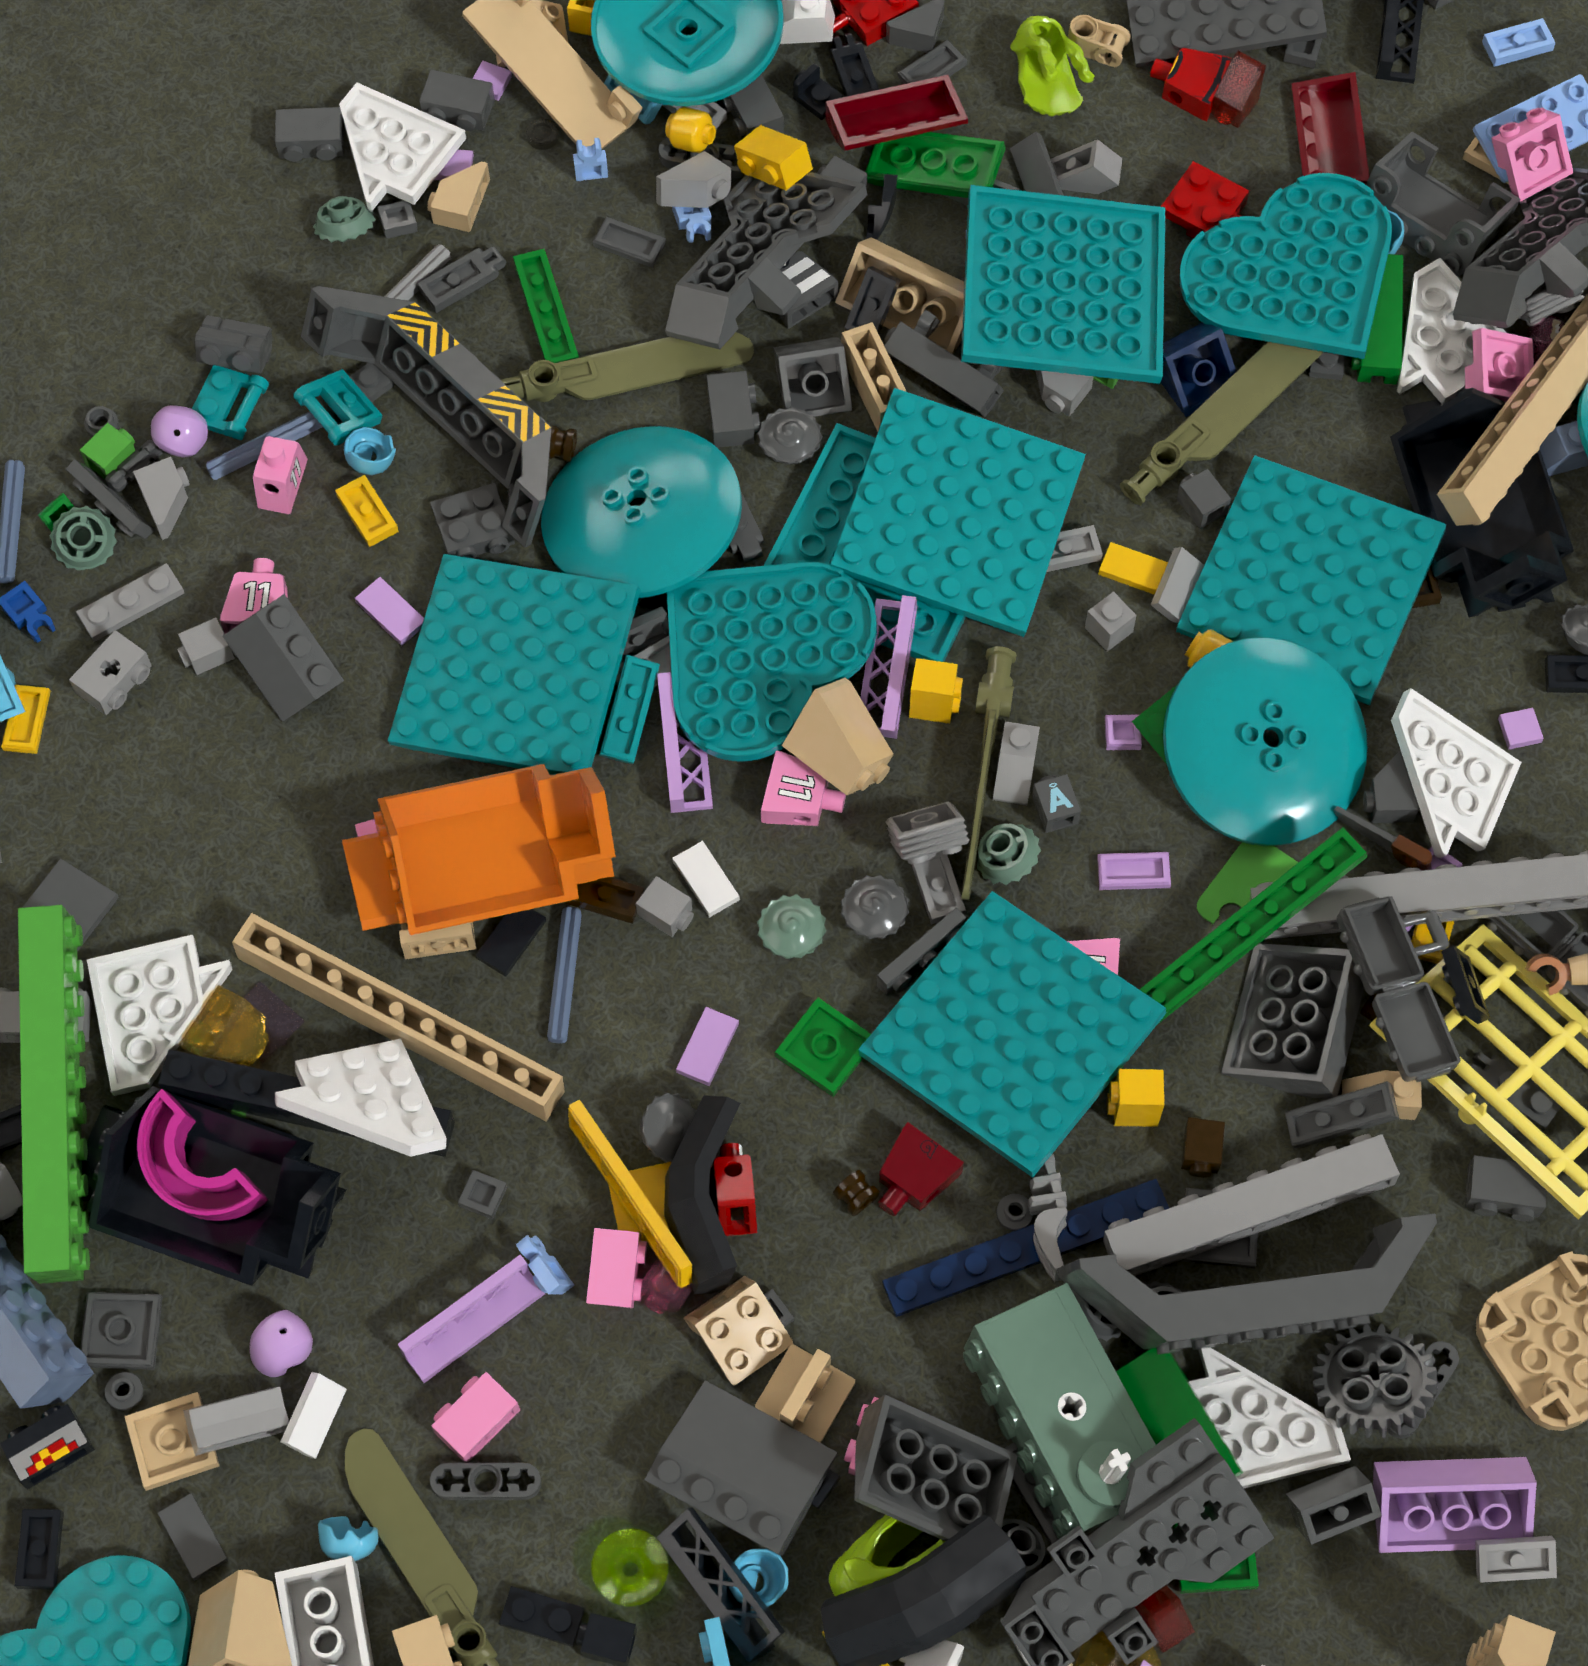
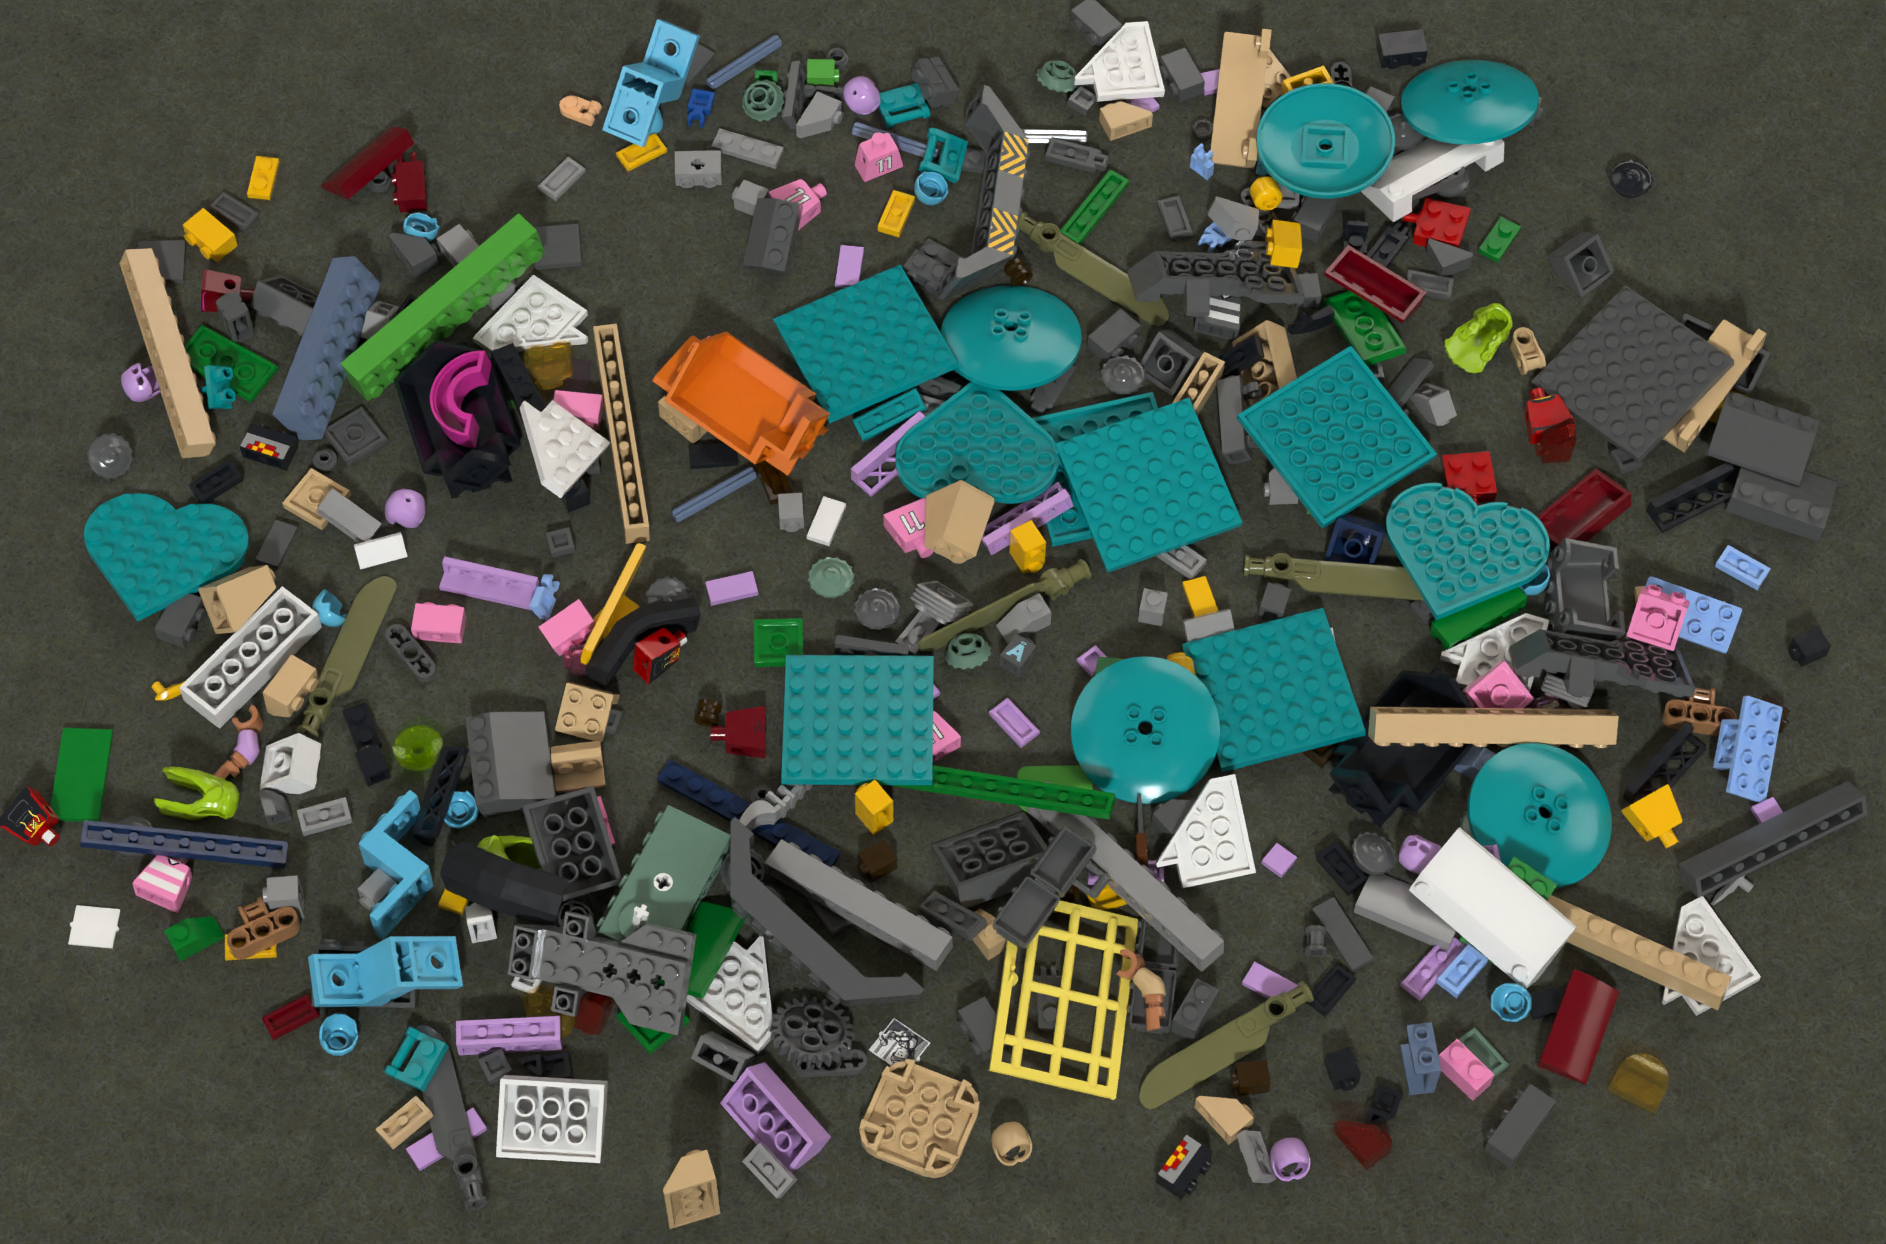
camera: 50 degrees right, 5 degrees down
(320, 1035) = (582, 405): none -> bright pink brick
(1451, 1295) = (898, 1043): none -> piece
(1460, 974) = (1080, 923): black plate -> none

